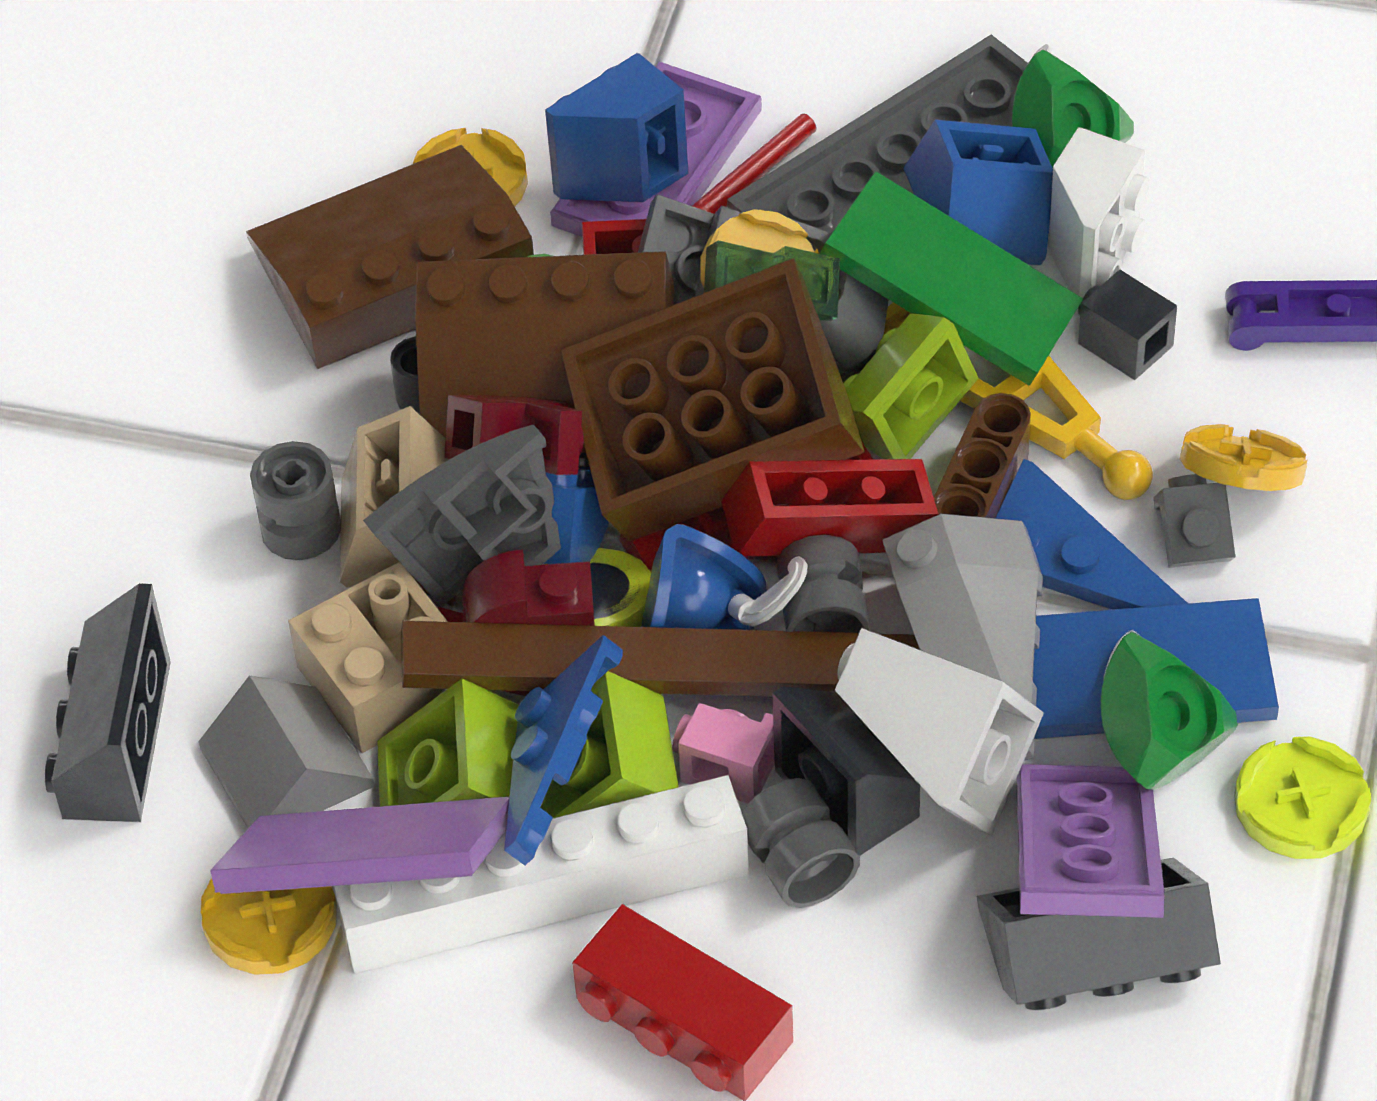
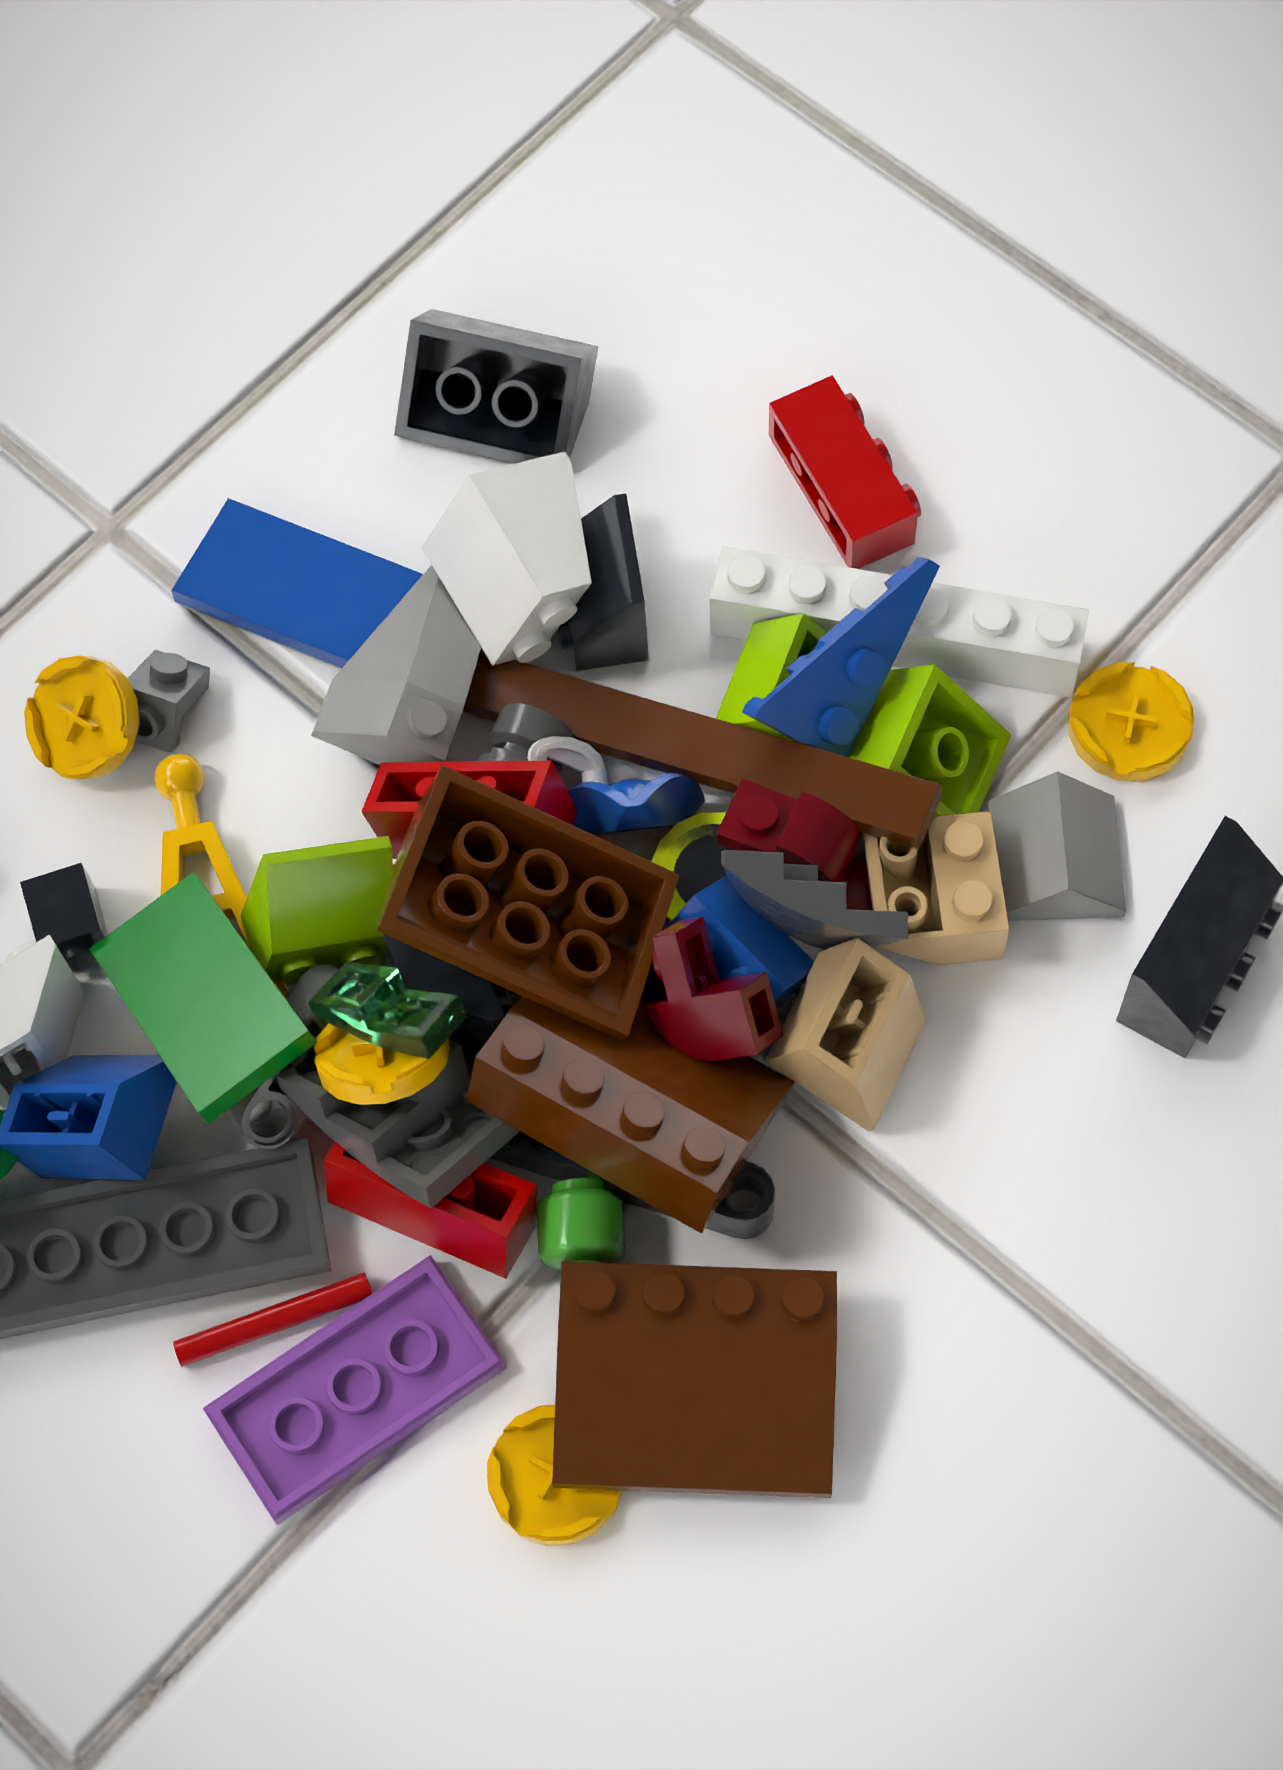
camera: 150 degrees left, 15 degrees up
(296, 500) = (935, 1095): dark grey wheel -> none
(362, 846) = (1043, 666): medium lavender tile -> none
(618, 135) = (398, 1351): blue slope -> none
(724, 744) = (684, 664): bright pink brick -> none
(799, 843) = (678, 548): dark grey wheel -> none
(986, 458) = (318, 791): reddish brown beam -> none
(1077, 550) = (276, 724): blue wing -> none
(1087, 843) = (465, 407): medium lavender tile -> none
(1160, 712) = (331, 500): green hat -> none
(1302, 798) = (263, 435): neon yellow tile -> none

